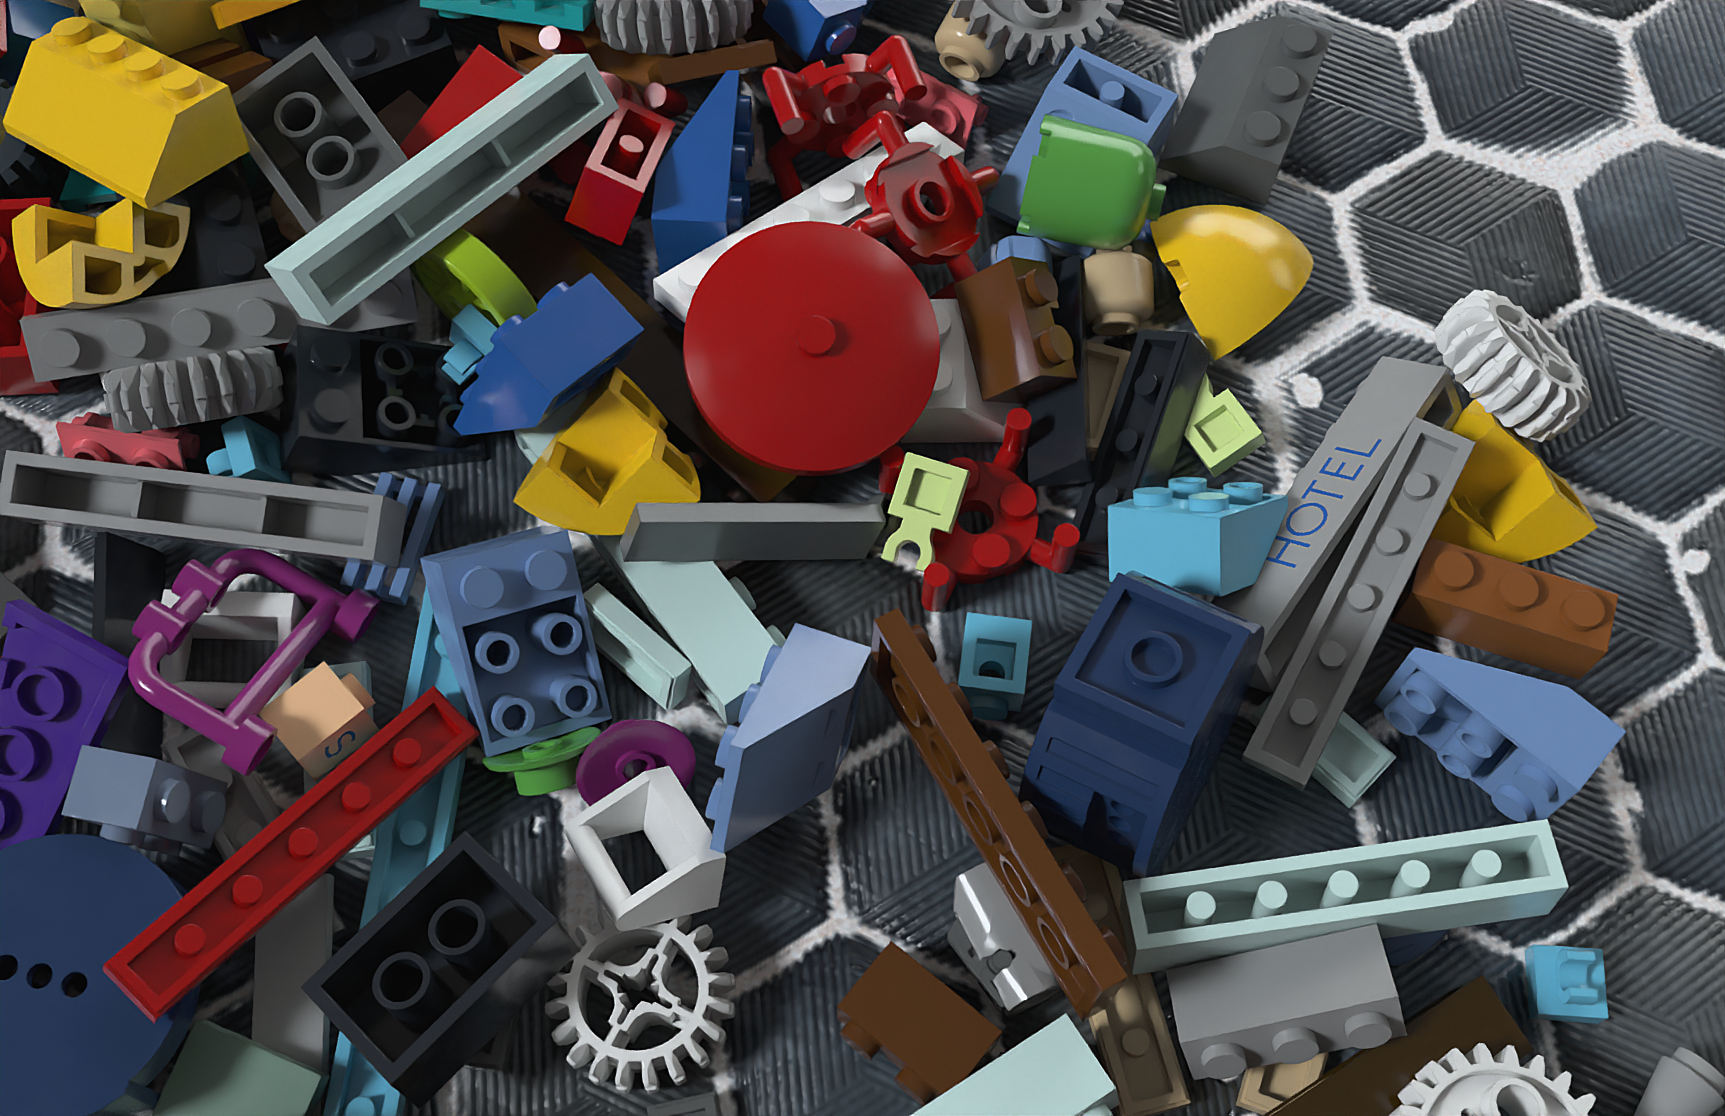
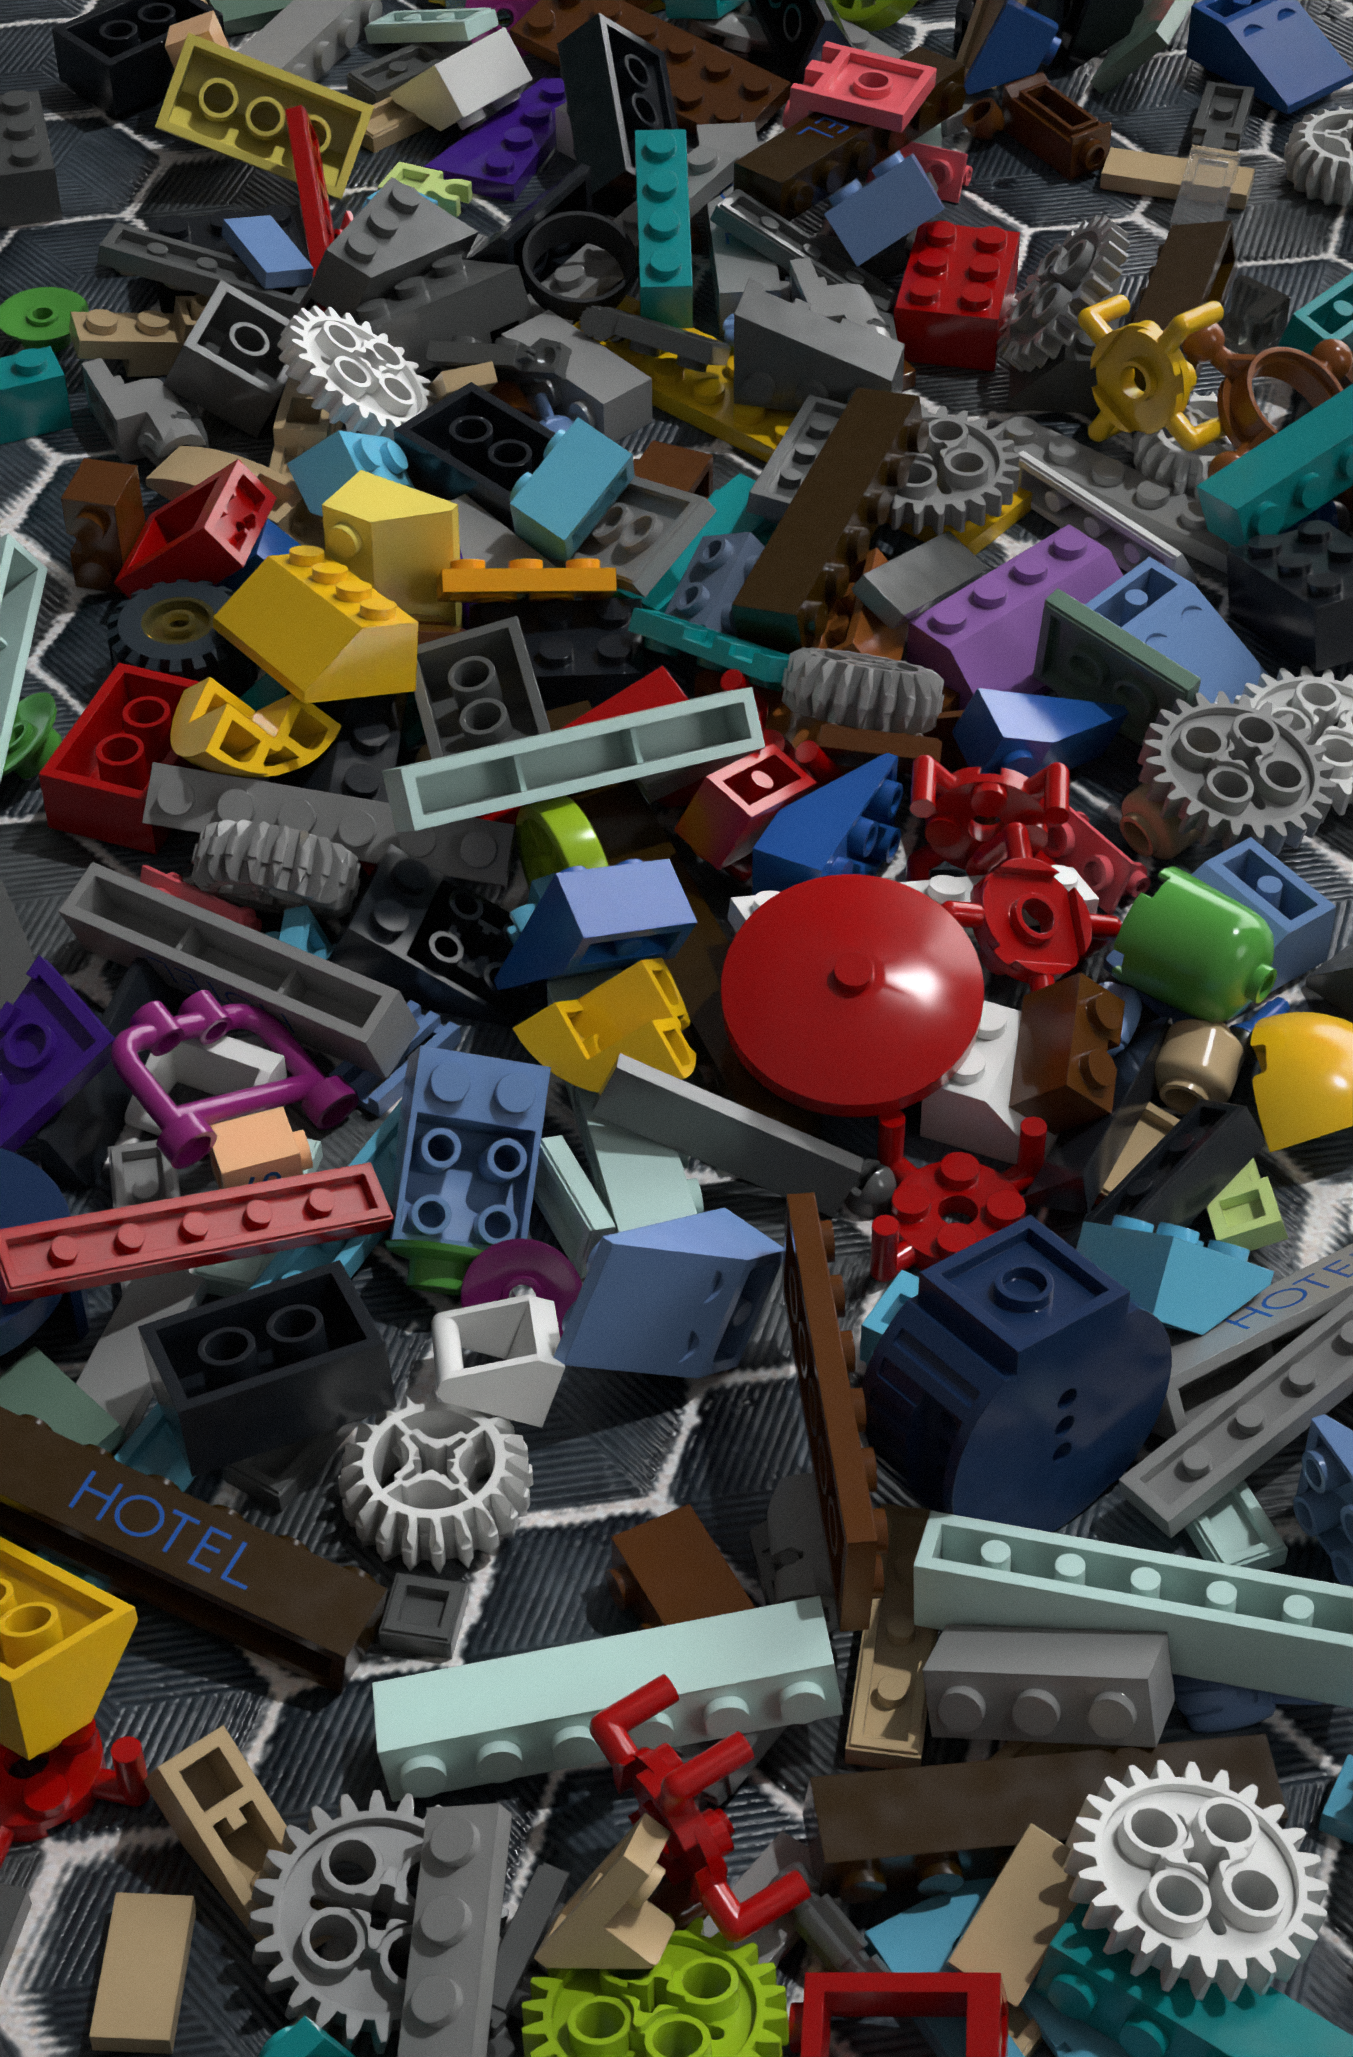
camera: 25 degrees right, 20 degrees down
(145, 801) = (78, 1151): sand blue brick -> none
(926, 500) = (904, 1168): yellowish green plate -> none

